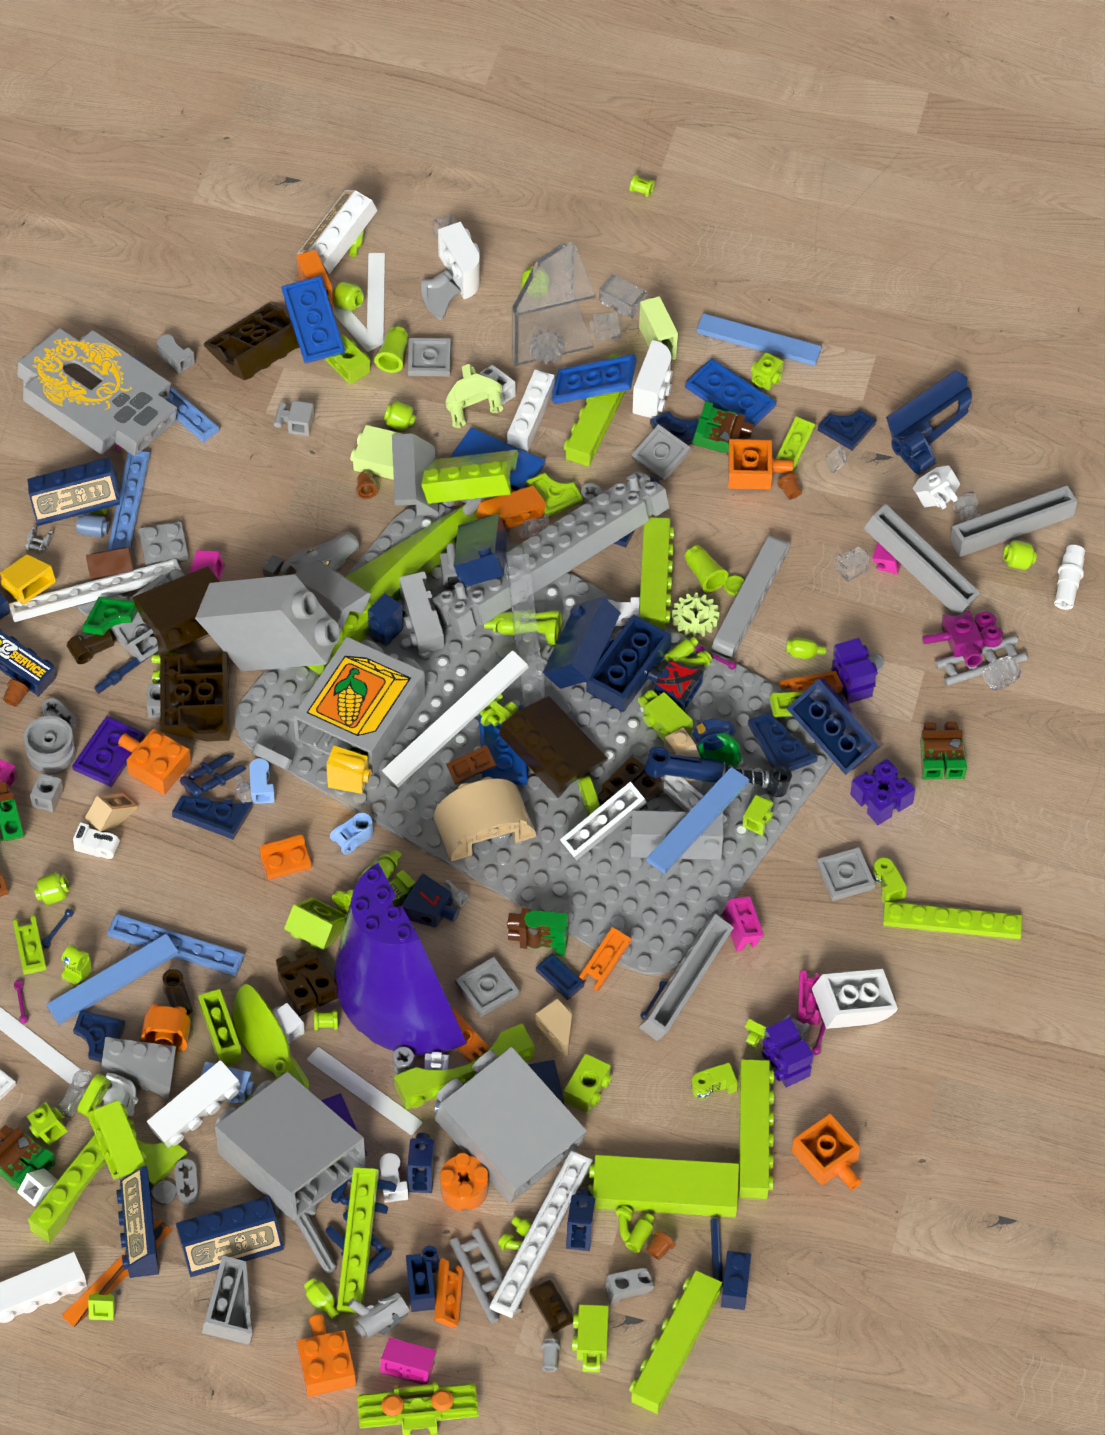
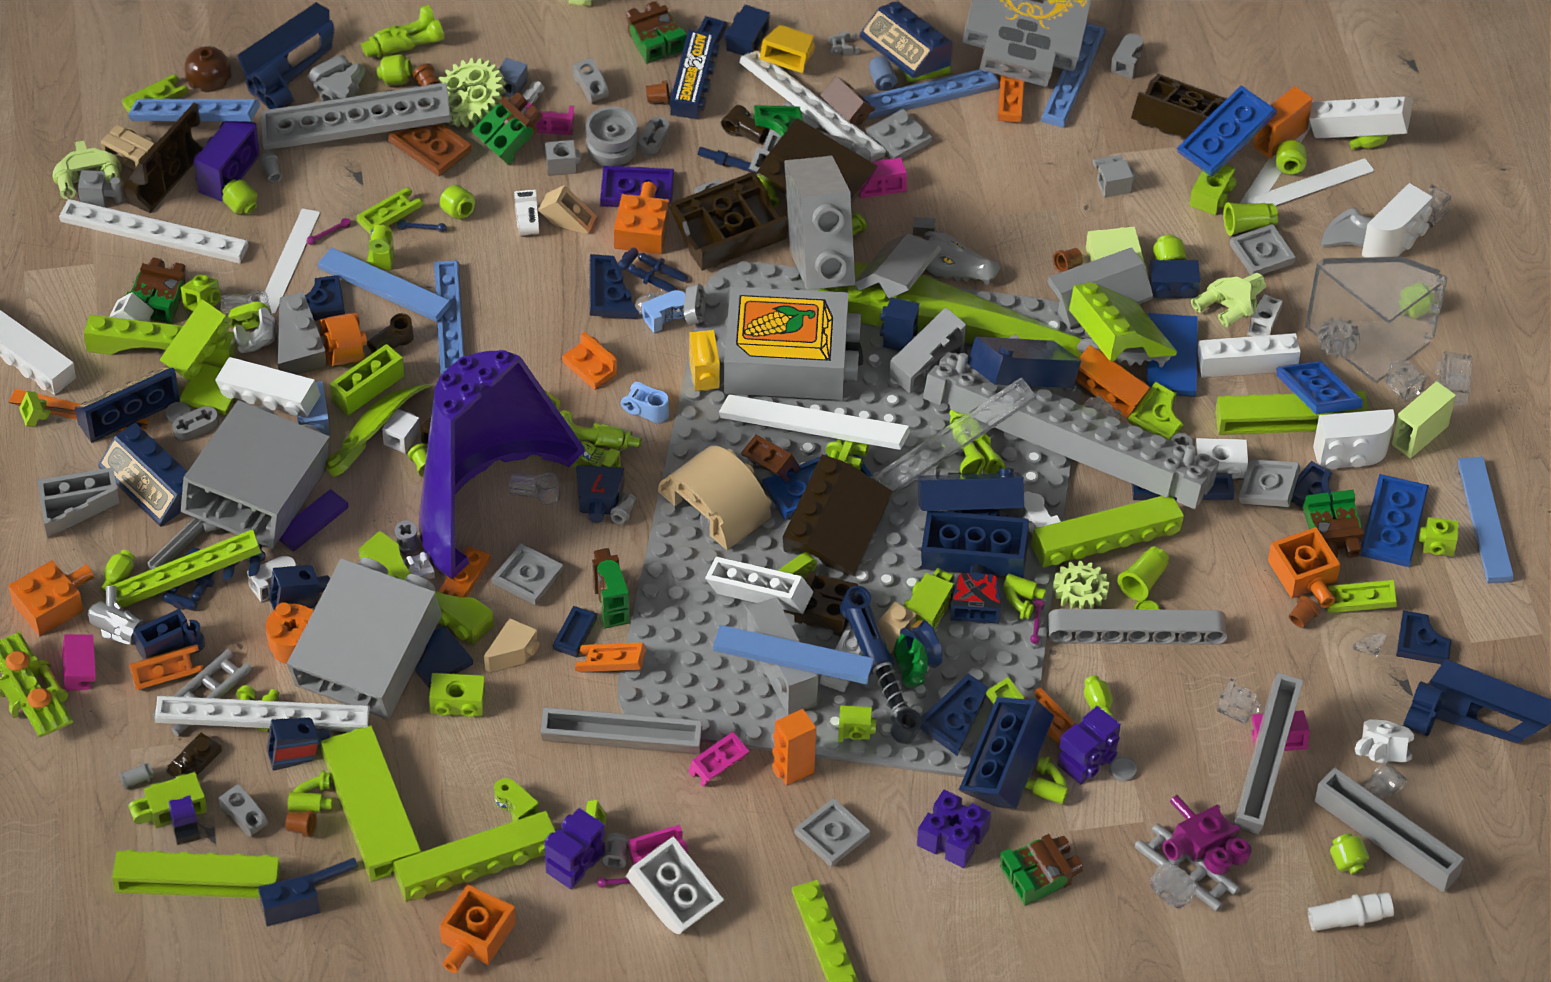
camera: 65 degrees right, 5 degrees down
(173, 451) = (1010, 99): none -> orange hinge
(364, 1091) = (368, 513): white sticker -> none
(429, 421) = (1174, 278): none -> dark blue brick
(619, 468) = (1230, 453): none -> white brick
(619, 1331) = (183, 820): none -> leg
(770, 861) = (794, 747): none -> orange brick
(875, 712) = (1046, 789): none -> lime plant
(890, 880) = (845, 876): lime leg -> none

